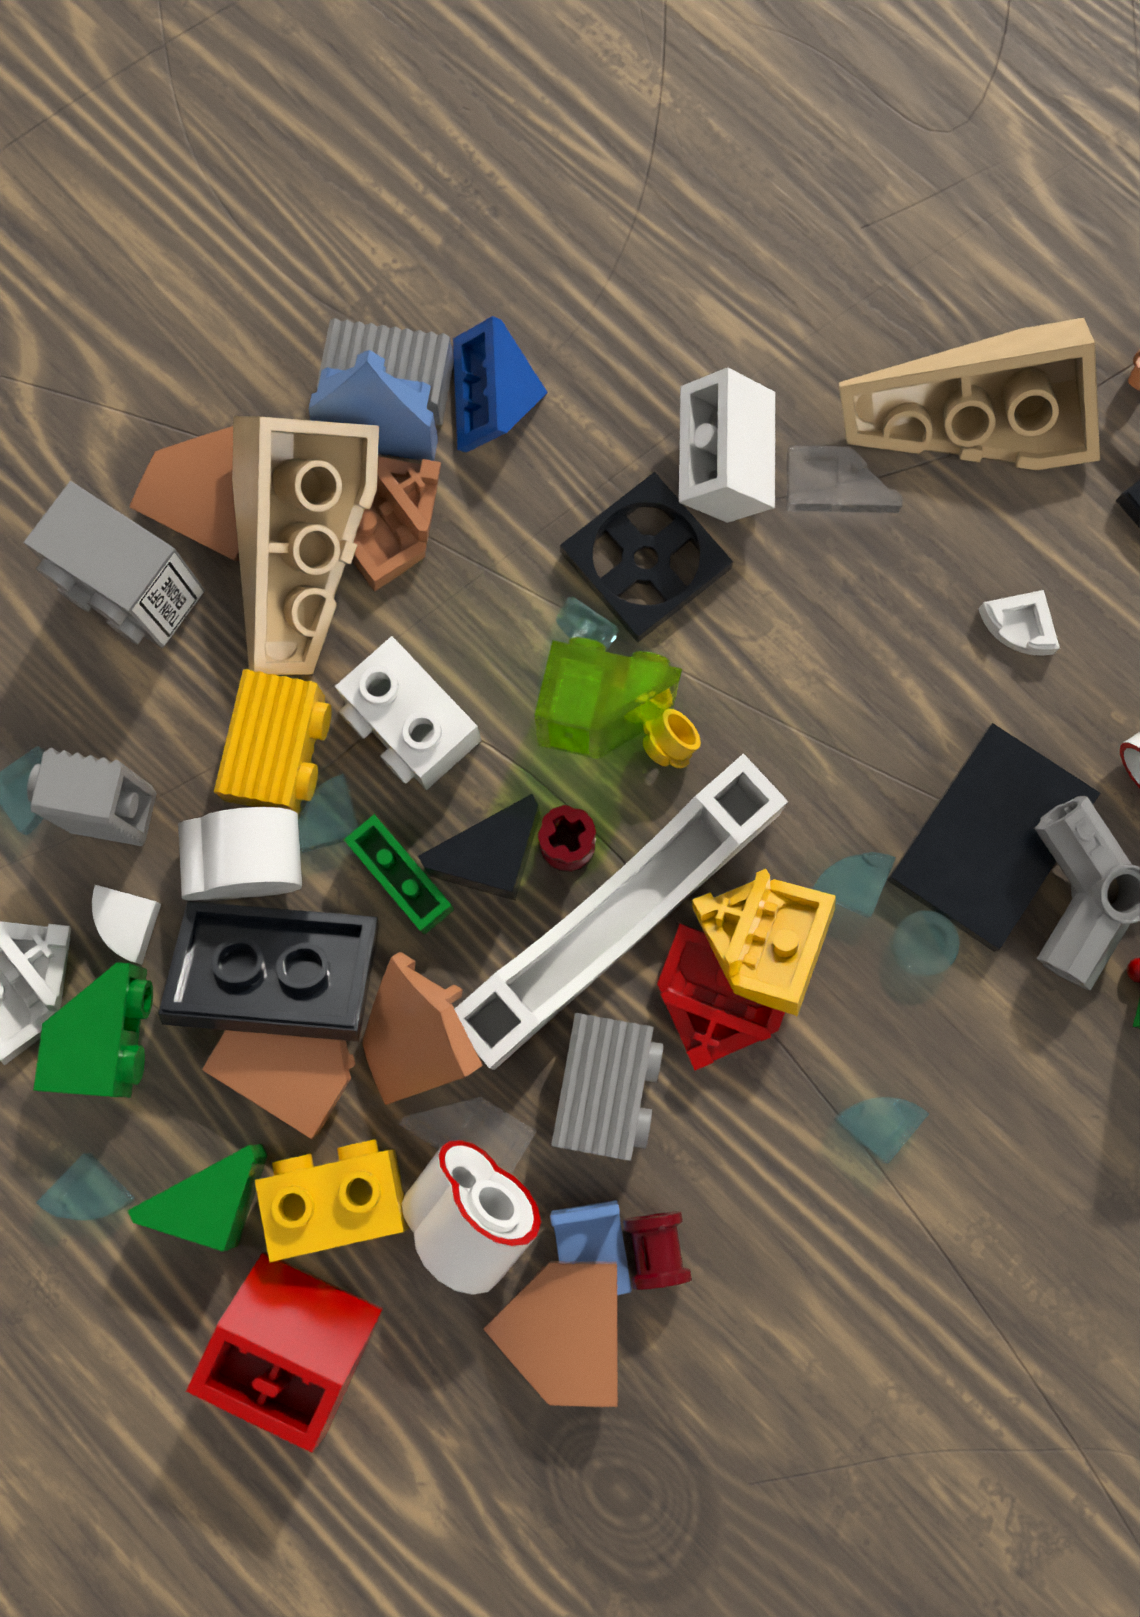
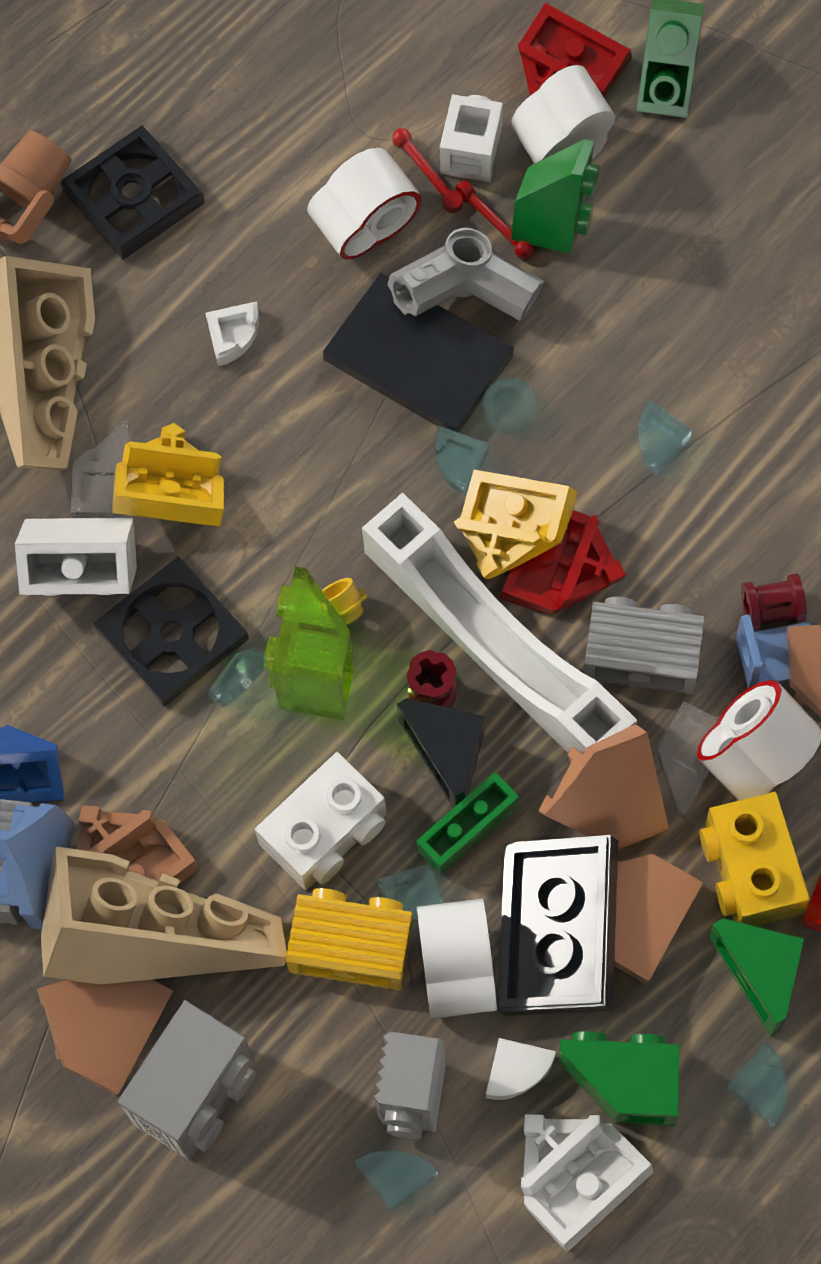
camera: 90 degrees left, 10 degrees down
(823, 548) = (169, 480): none -> yellow slope

